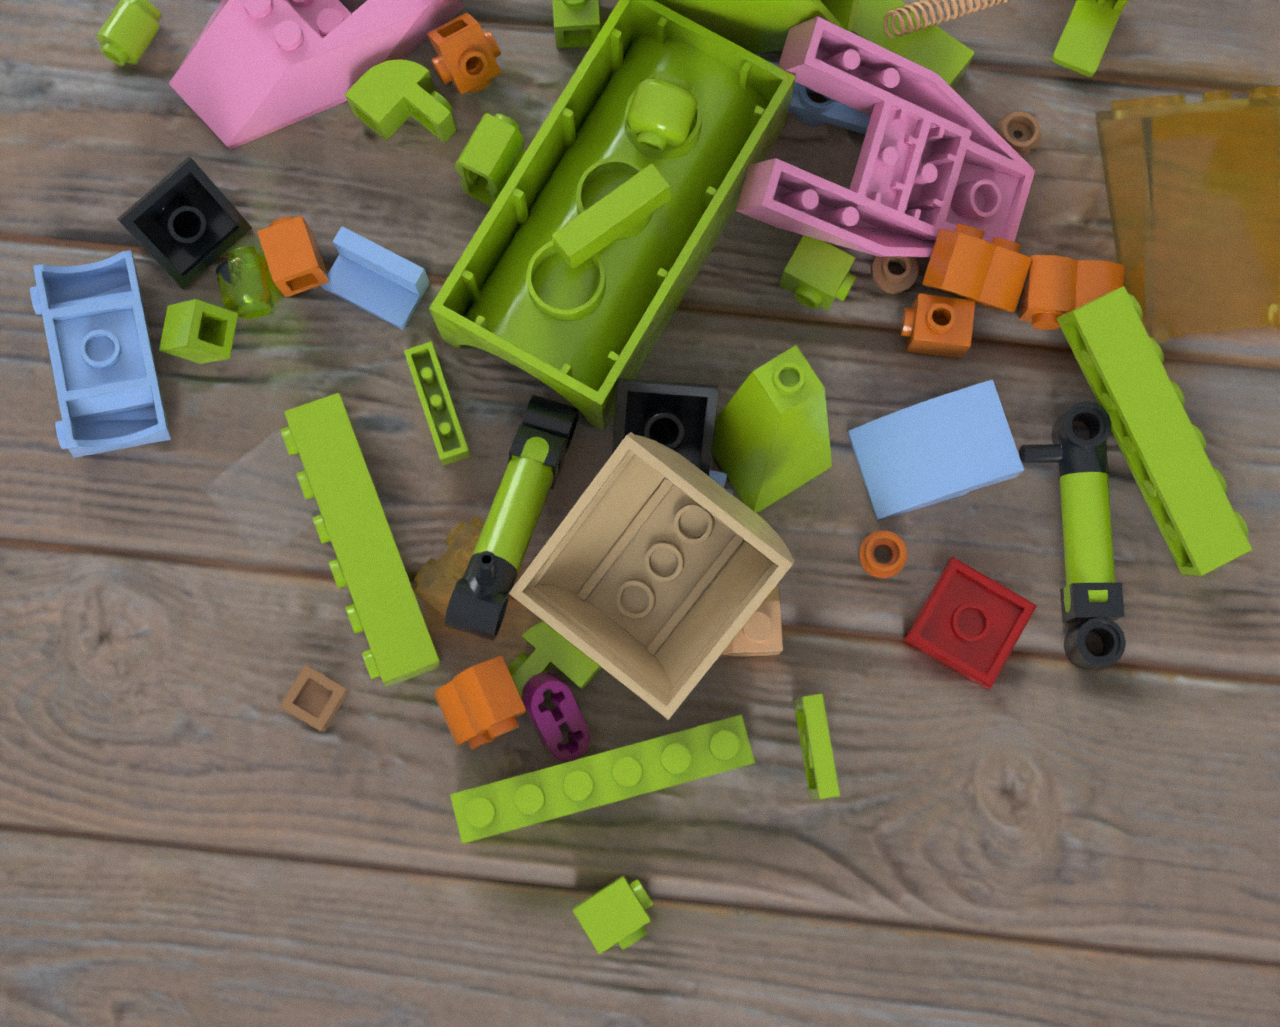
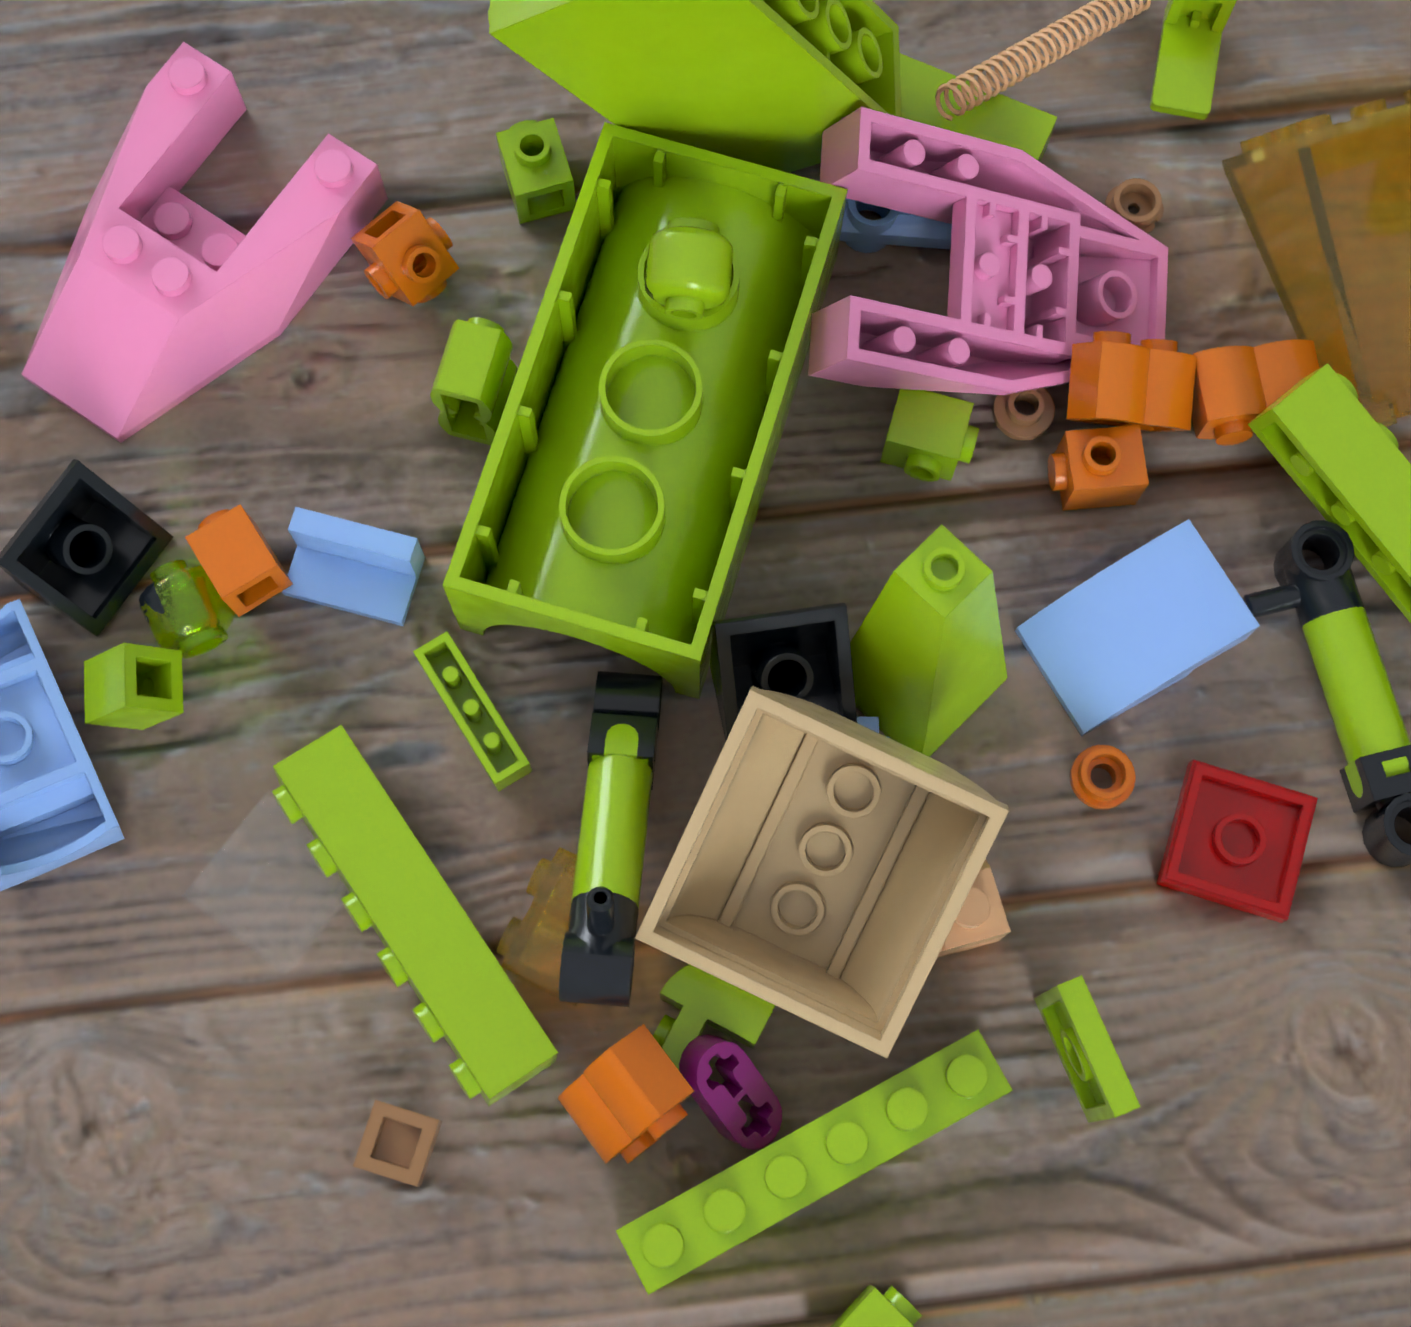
camera: 15 degrees left, 5 degrees down
(396, 91) = (325, 322): lime brick -> none
(612, 216) = (656, 414): lime piece -> none

